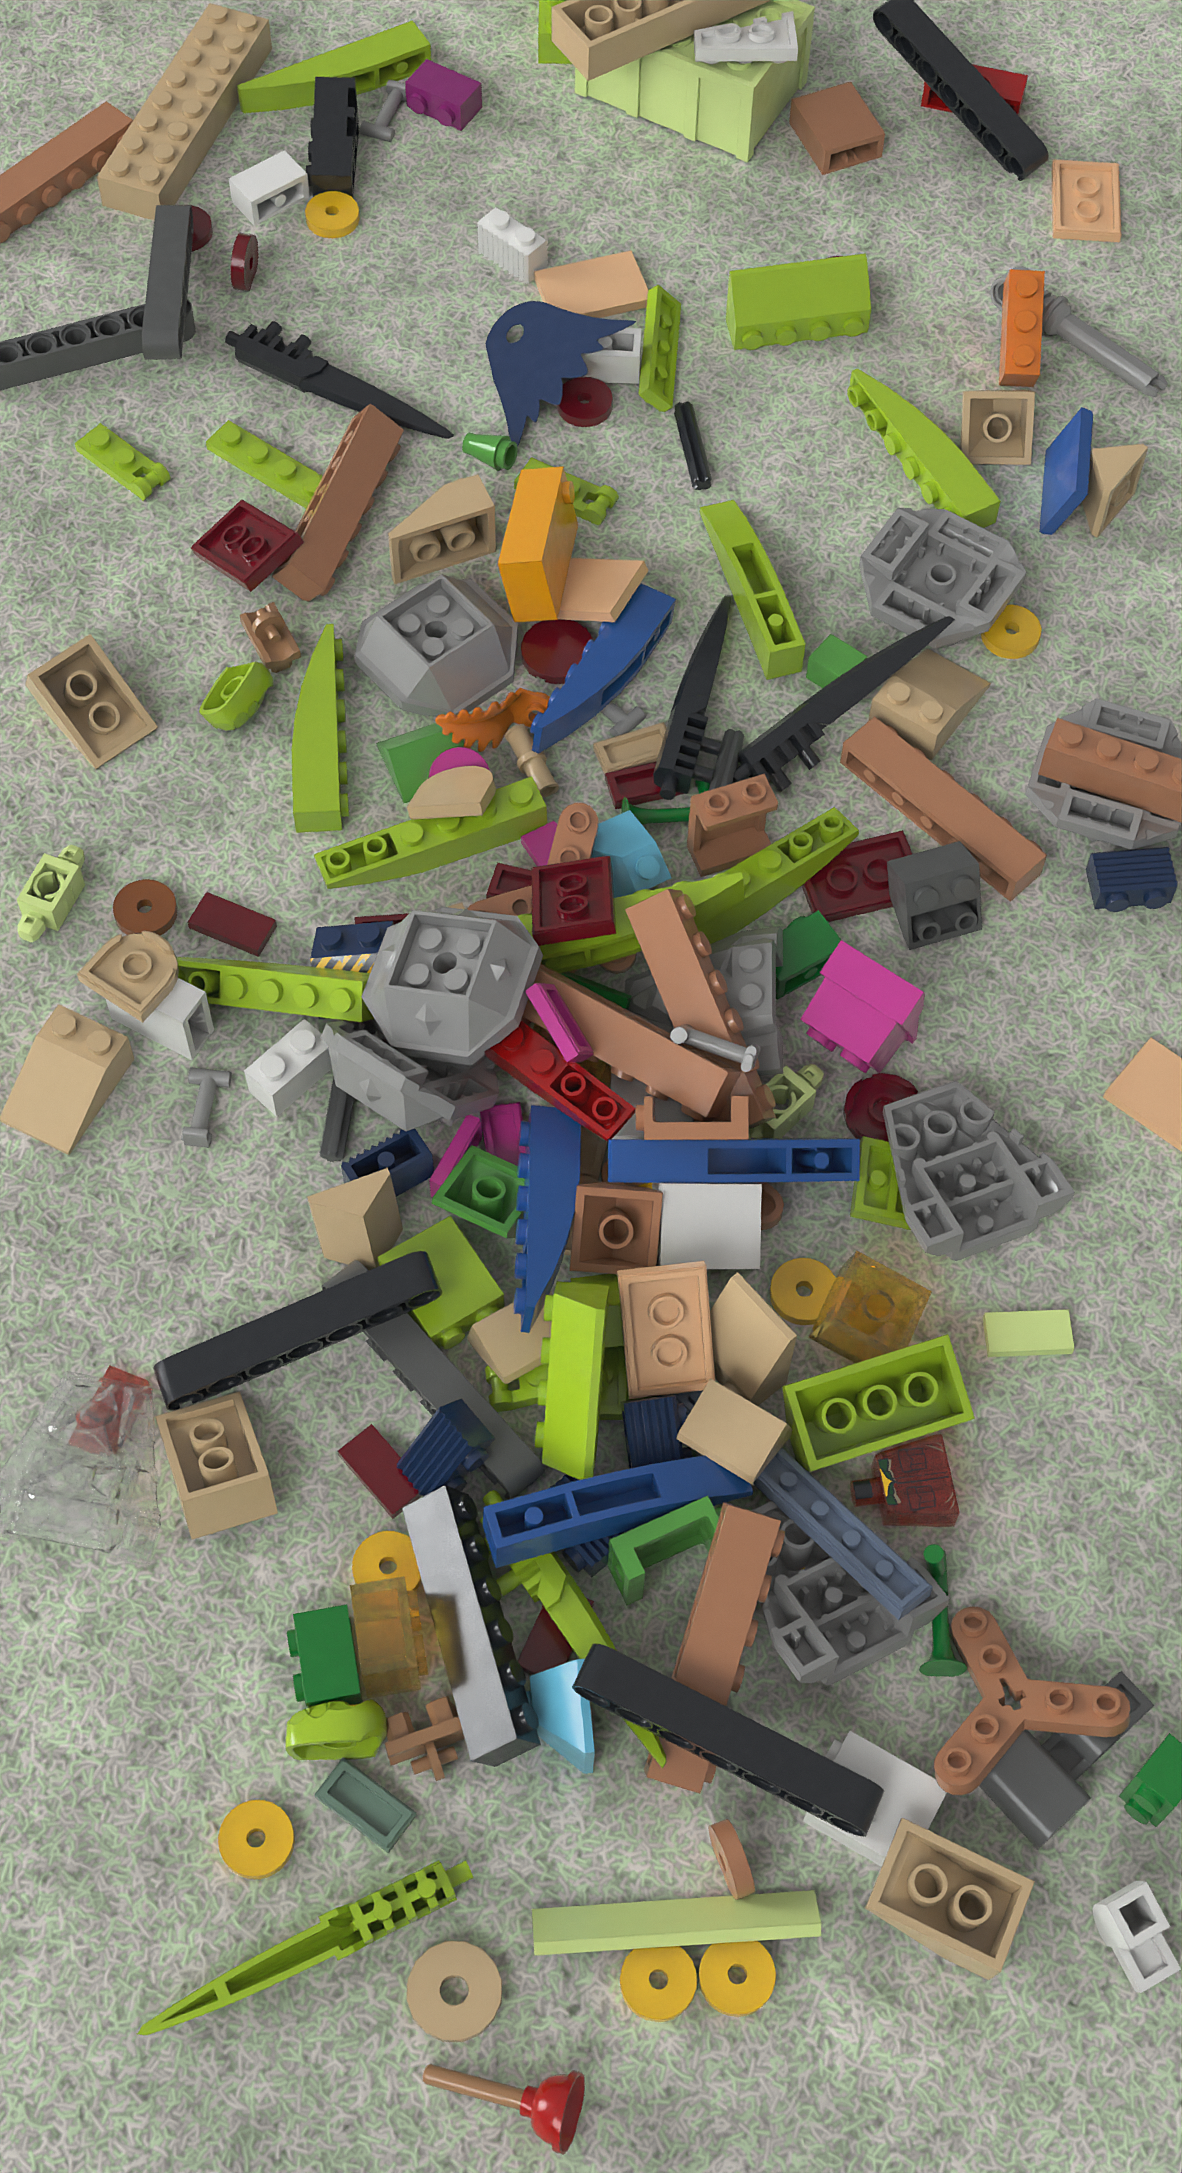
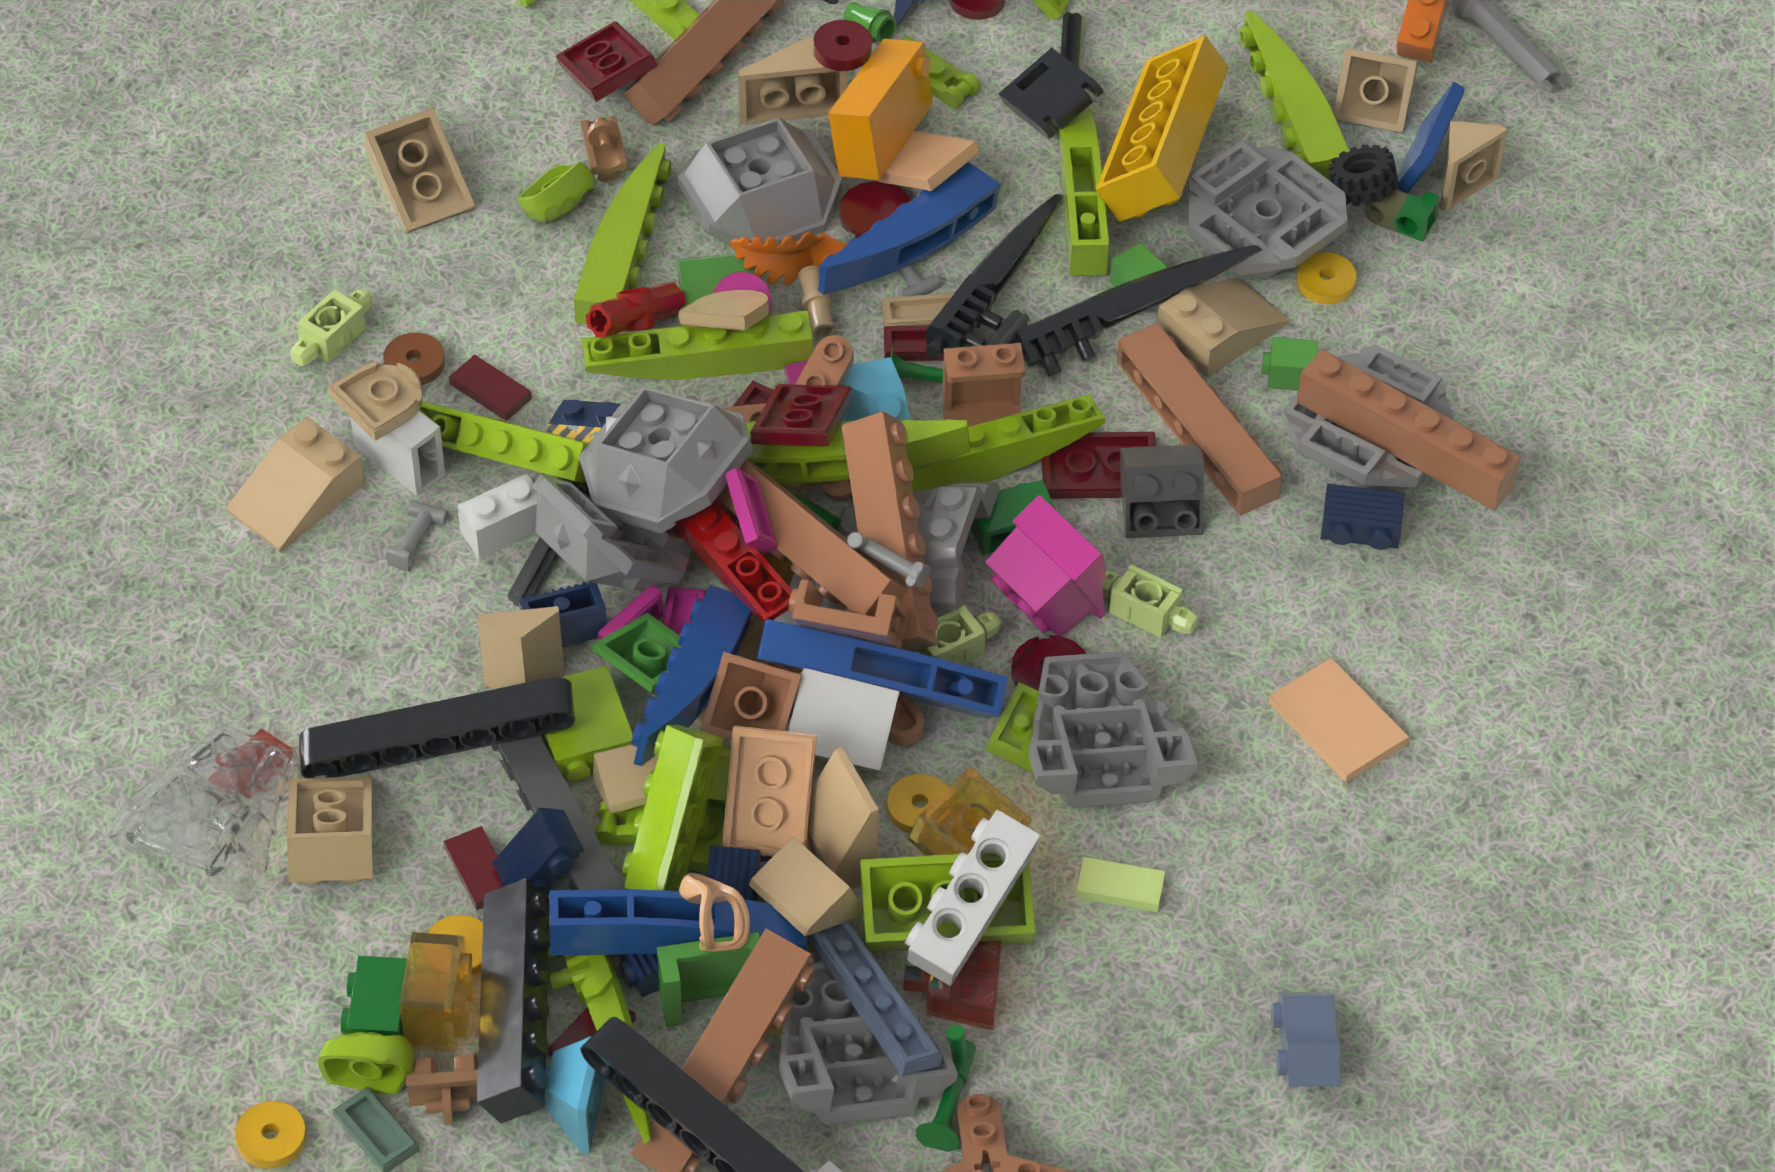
camera: 15 degrees right, 10 degrees down
(358, 811) = (635, 309): none -> red piece
(487, 499) = (842, 45): none -> dark red piece
(652, 1467) = (706, 891): none -> light nougat piece
(697, 493) = (1050, 91): none -> black container
(818, 511) = (1162, 129): none -> yellow brick
(942, 1342) = (946, 956): none -> white brick
(967, 1007) = (1148, 602): none -> yellowish green piece
(1011, 731) = (1287, 361): none -> bright green brick
(1018, 505) = (1364, 174): none -> black tyre
(1059, 547) = (1405, 213): none -> green leg

